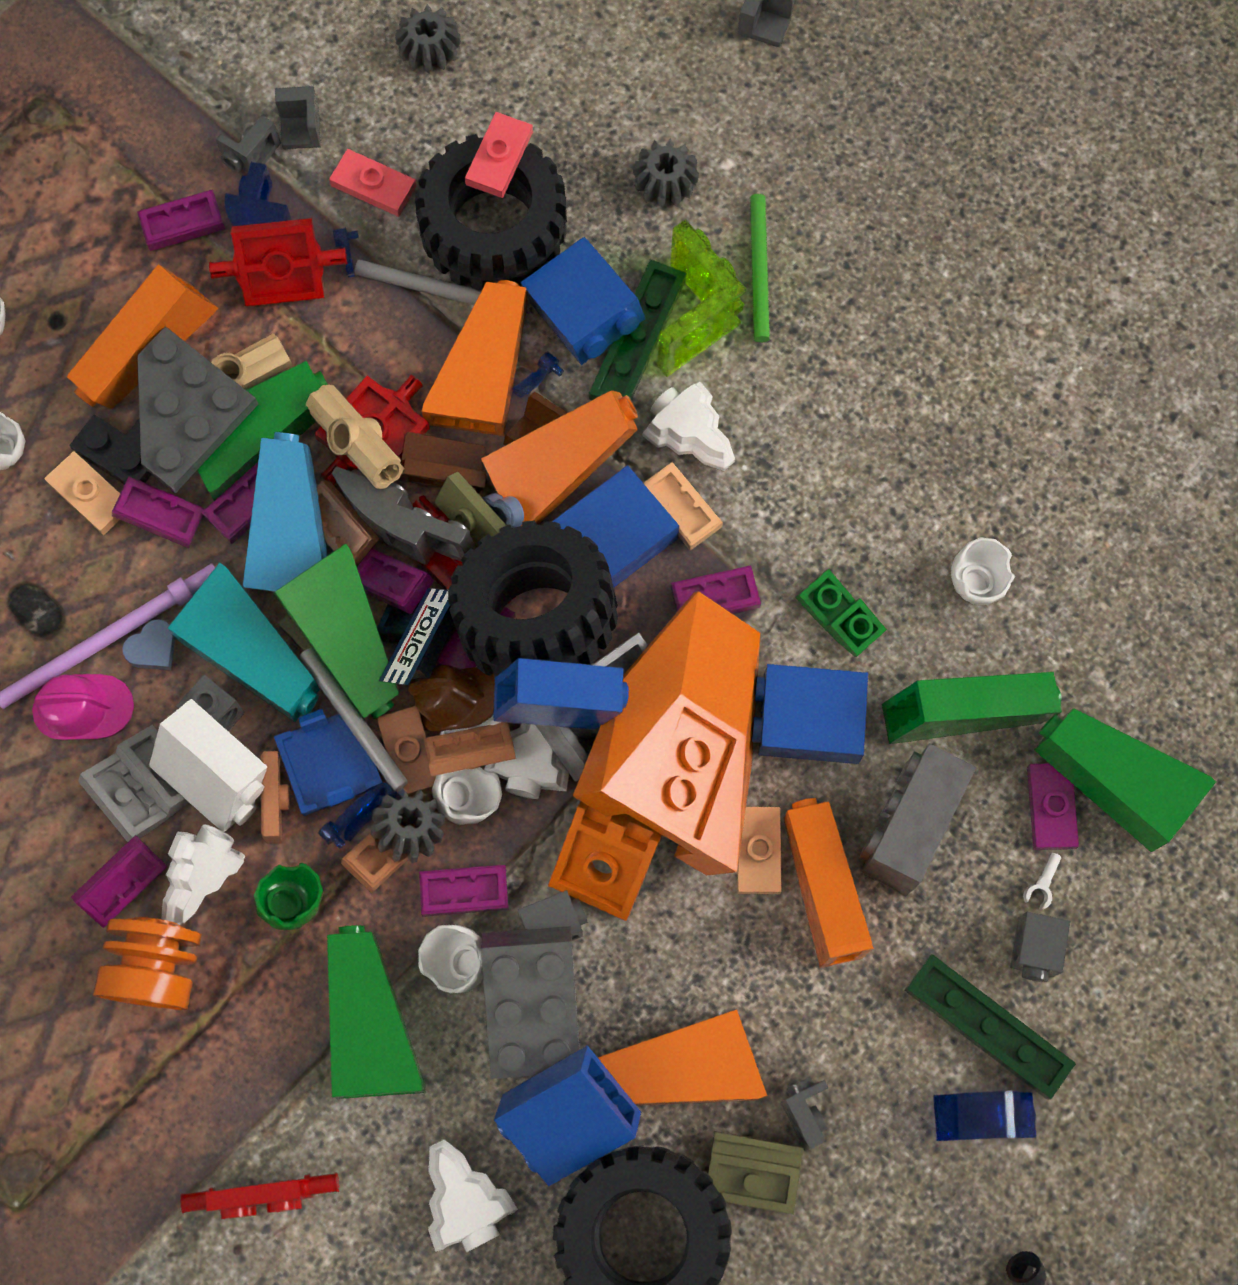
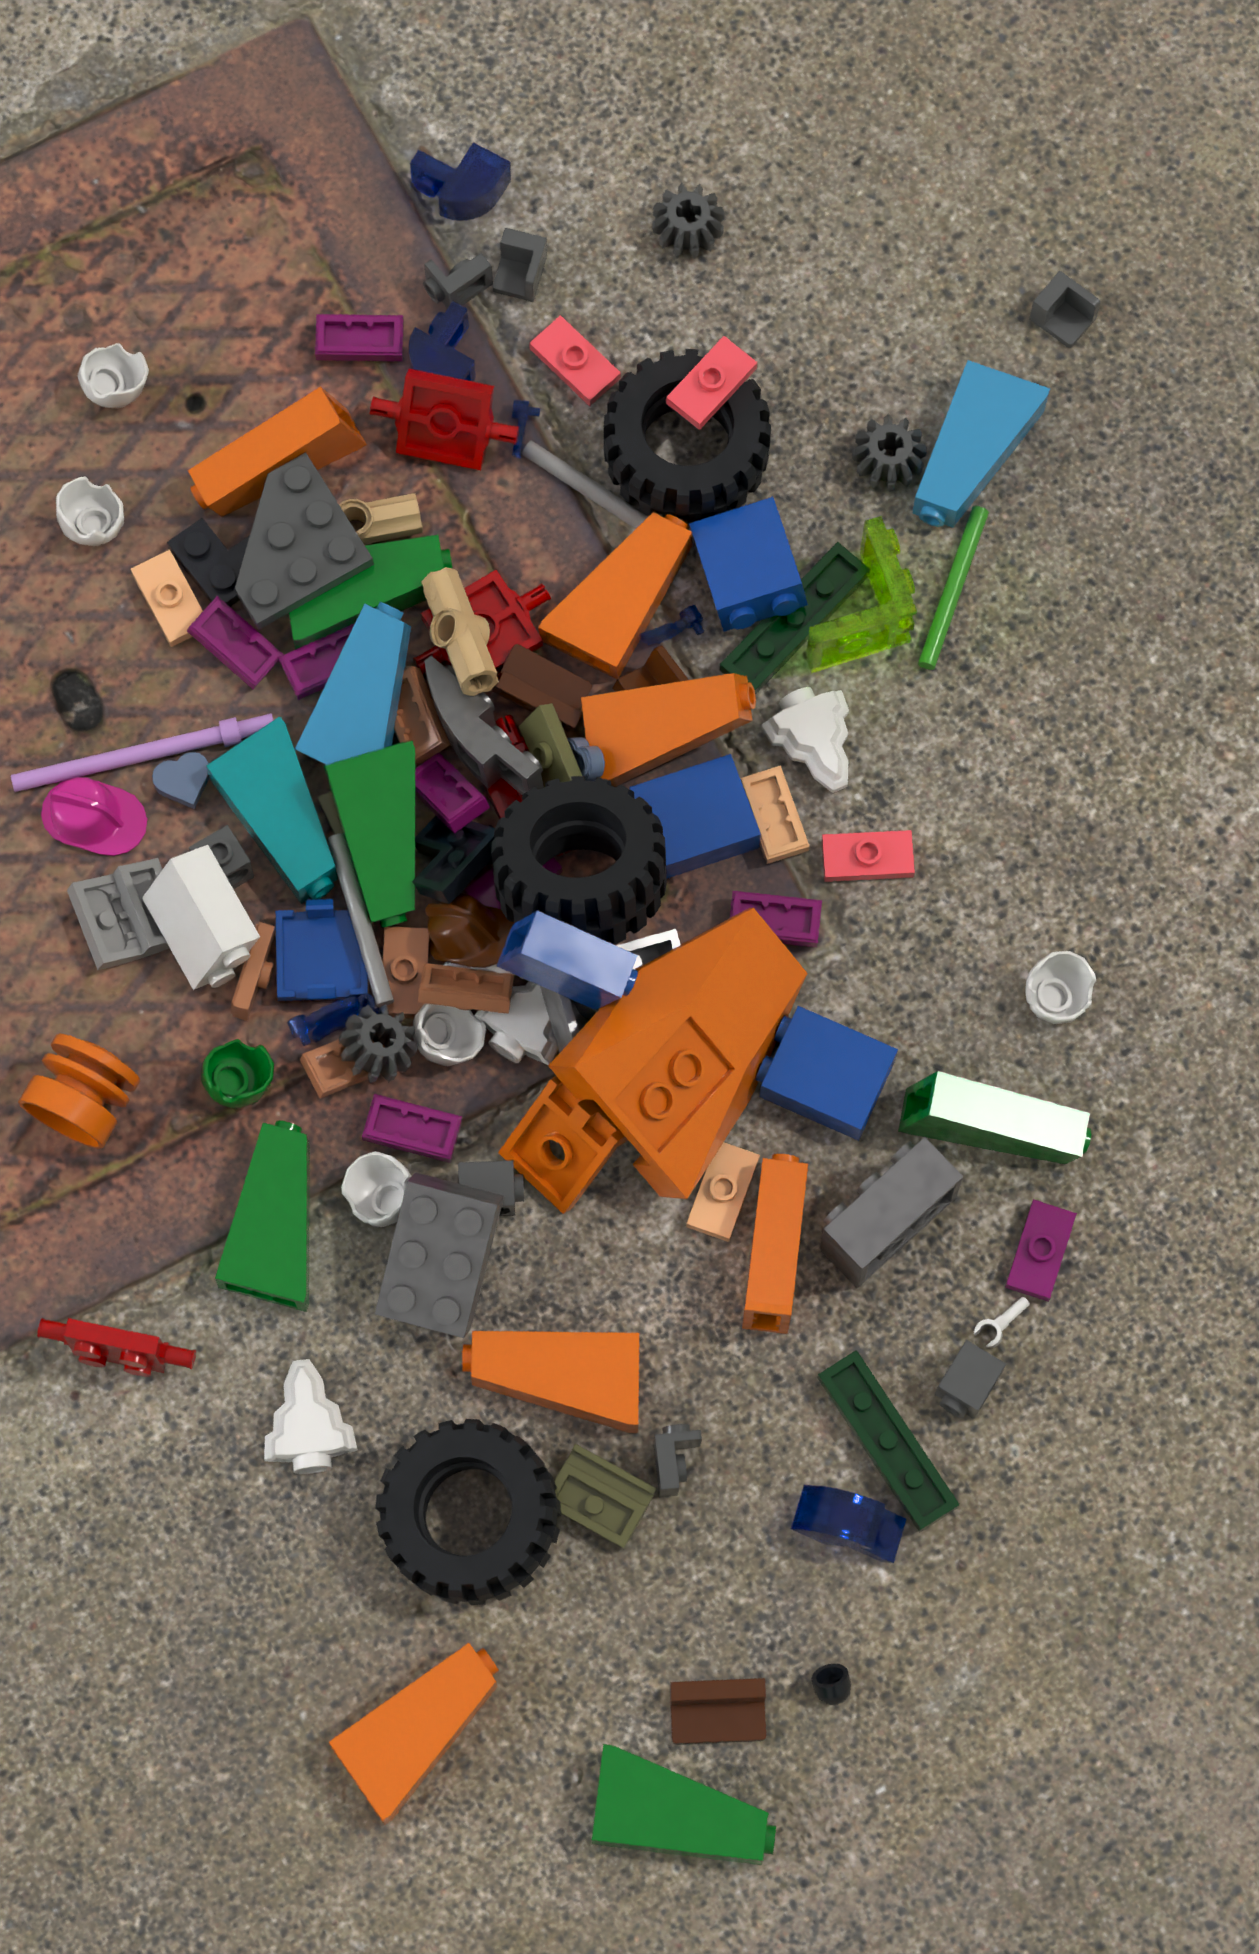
camera: 20 degrees right, 0 degrees up
(119, 881) = (76, 1002): magenta plate -> none
(197, 869) = (157, 1017): white rock -> none
(229, 72) = (469, 188): none -> clear blue brick
(416, 637) = (451, 858): sticker -> none
(567, 1116) = (435, 1373): blue brick -> none
(734, 133) = (978, 435): none -> dark azure slope
(773, 514) = (868, 856): none -> coral plate
(840, 614) = (898, 981): green slope -> none
(1124, 777) = (1121, 1243): green slope -> none

